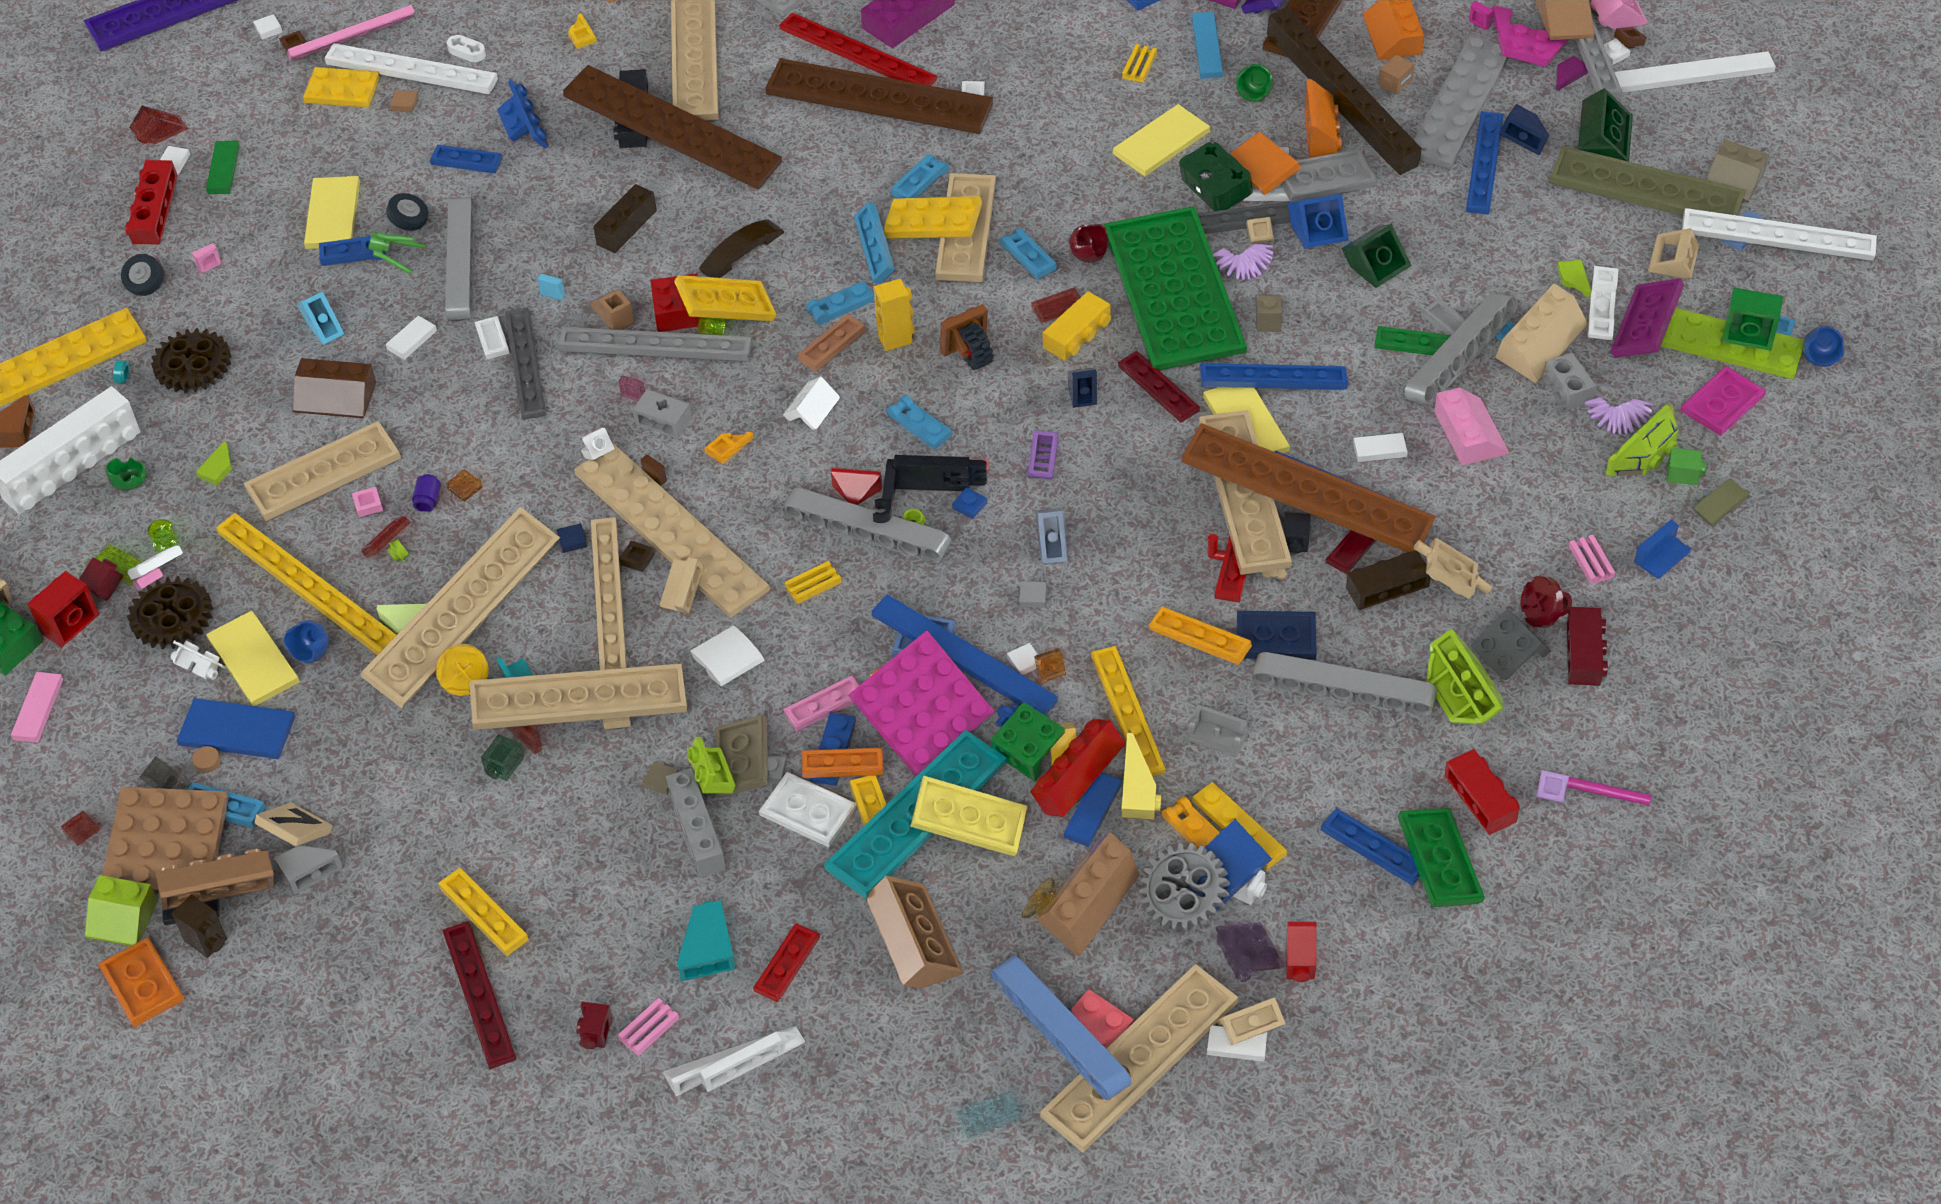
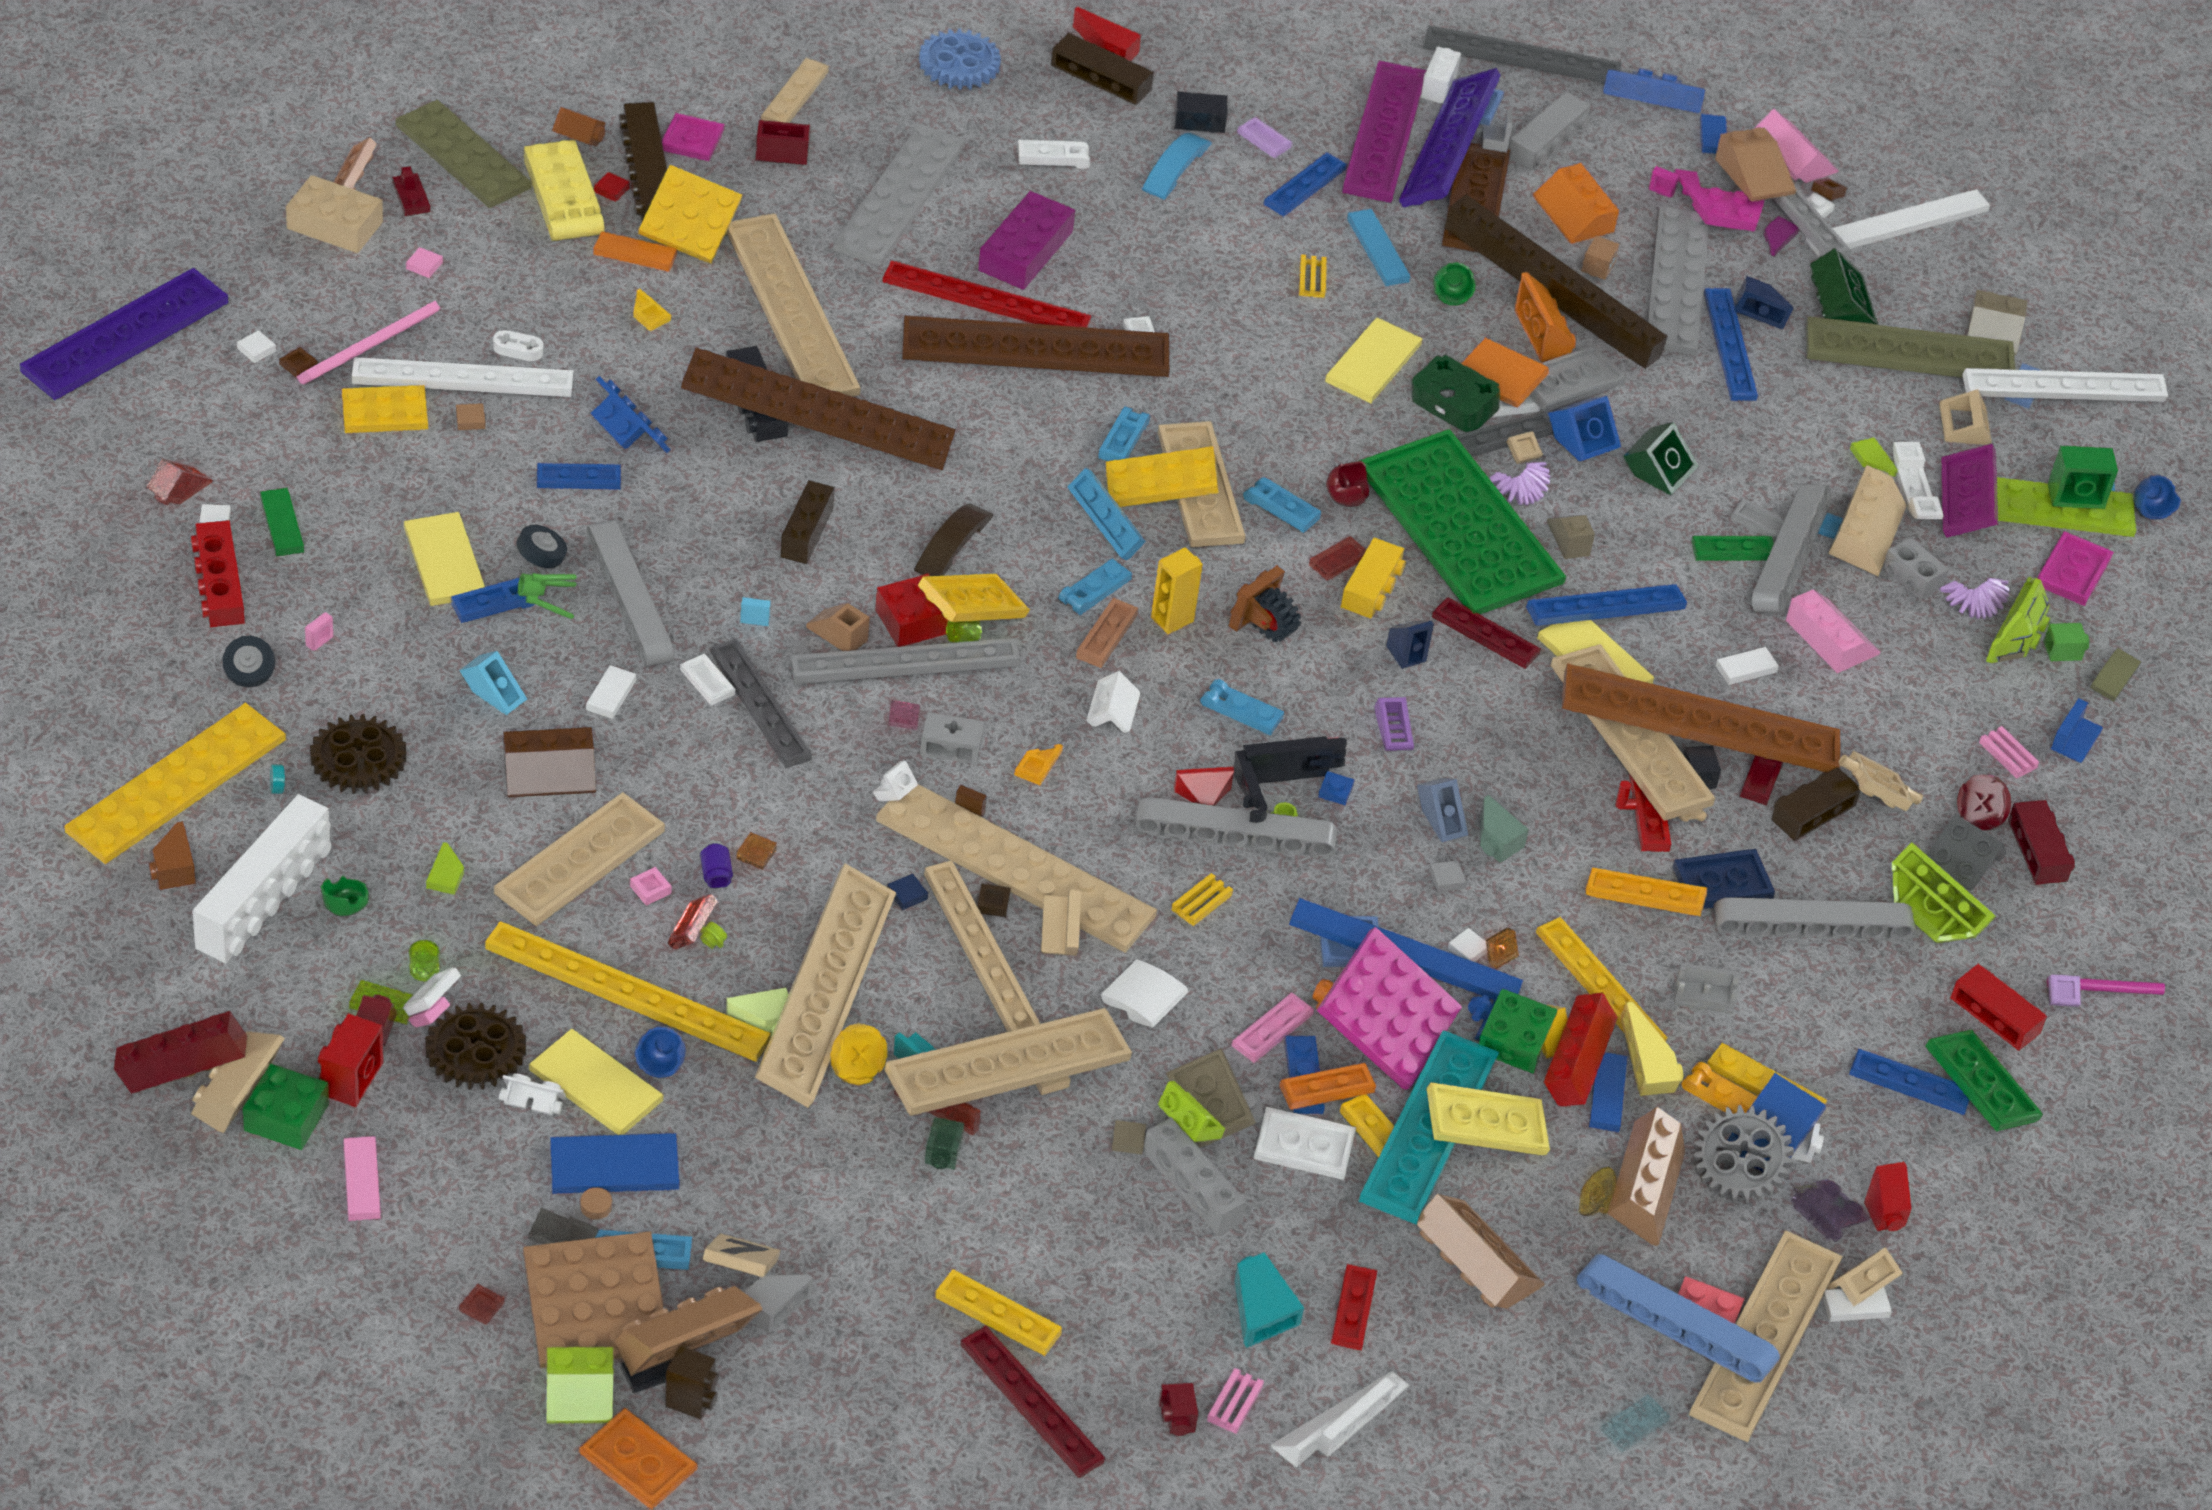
camera: 25 degrees left, 5 degrees down
(1092, 562) = (1500, 831): none -> sand green slope

